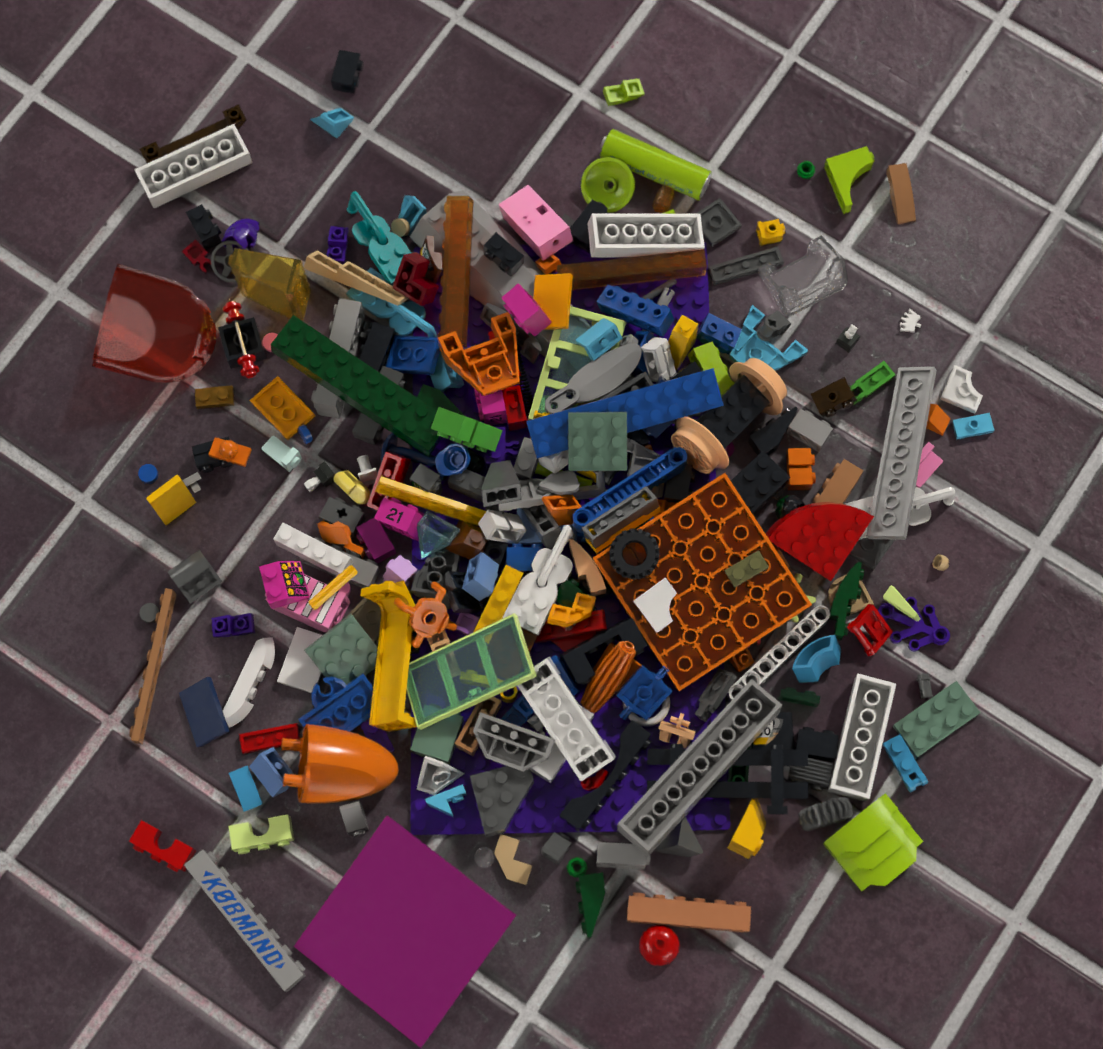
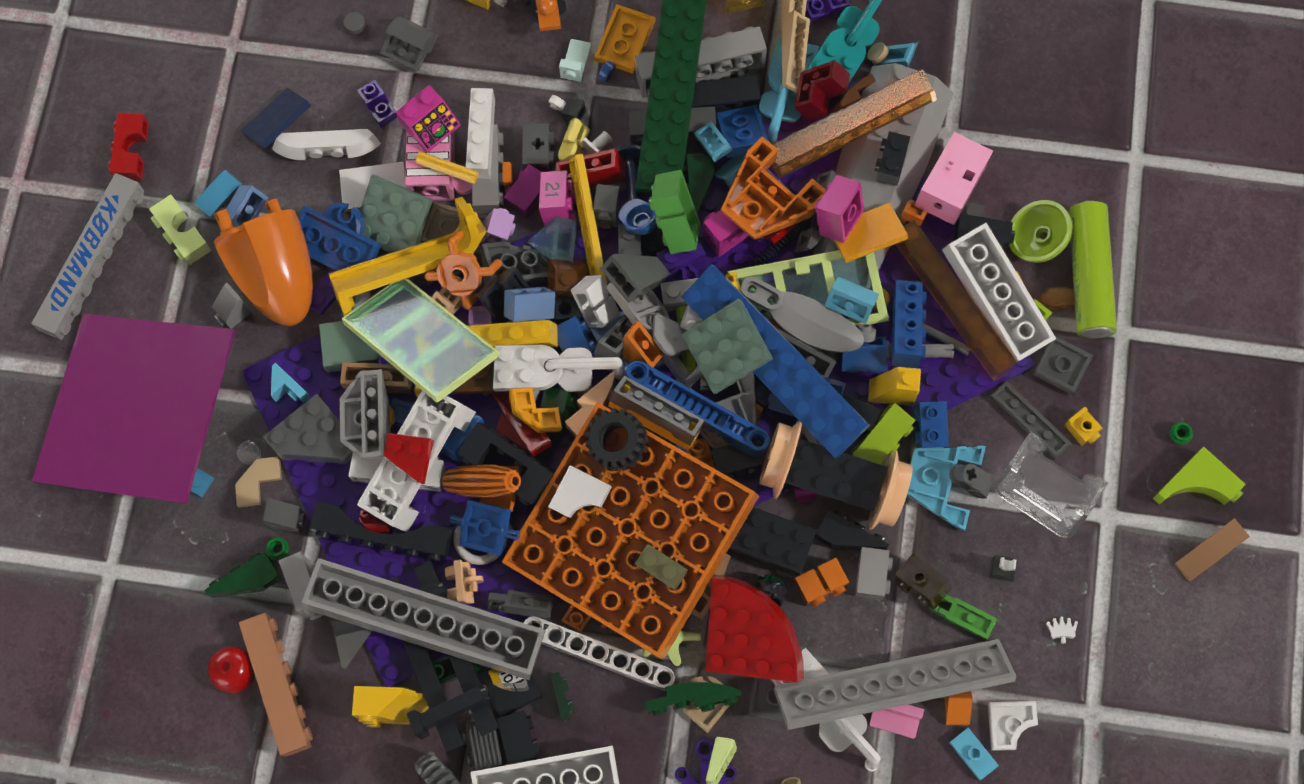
camera: 65 degrees right, 0 degrees up
(151, 674) = (300, 52): medium nougat plate -> none
(267, 738) = (277, 188): red tile -> none
(335, 533) = (513, 146): orange slope -> none
(416, 378) = (712, 141): none -> medium azure plate
(436, 775) = (307, 363): white slope -> none
(514, 408) = (735, 252): red panel -> none
(565, 718) = (409, 454): none -> red wing
(623, 93) = (1161, 201): lime slope -> none
(658, 359) = (863, 372): white brick -> none
(816, 659) = (612, 695): dark azure brick -> none
(841, 484) = (823, 634): medium nougat brick -> none
(874, 625) = (680, 741): red plate -> none

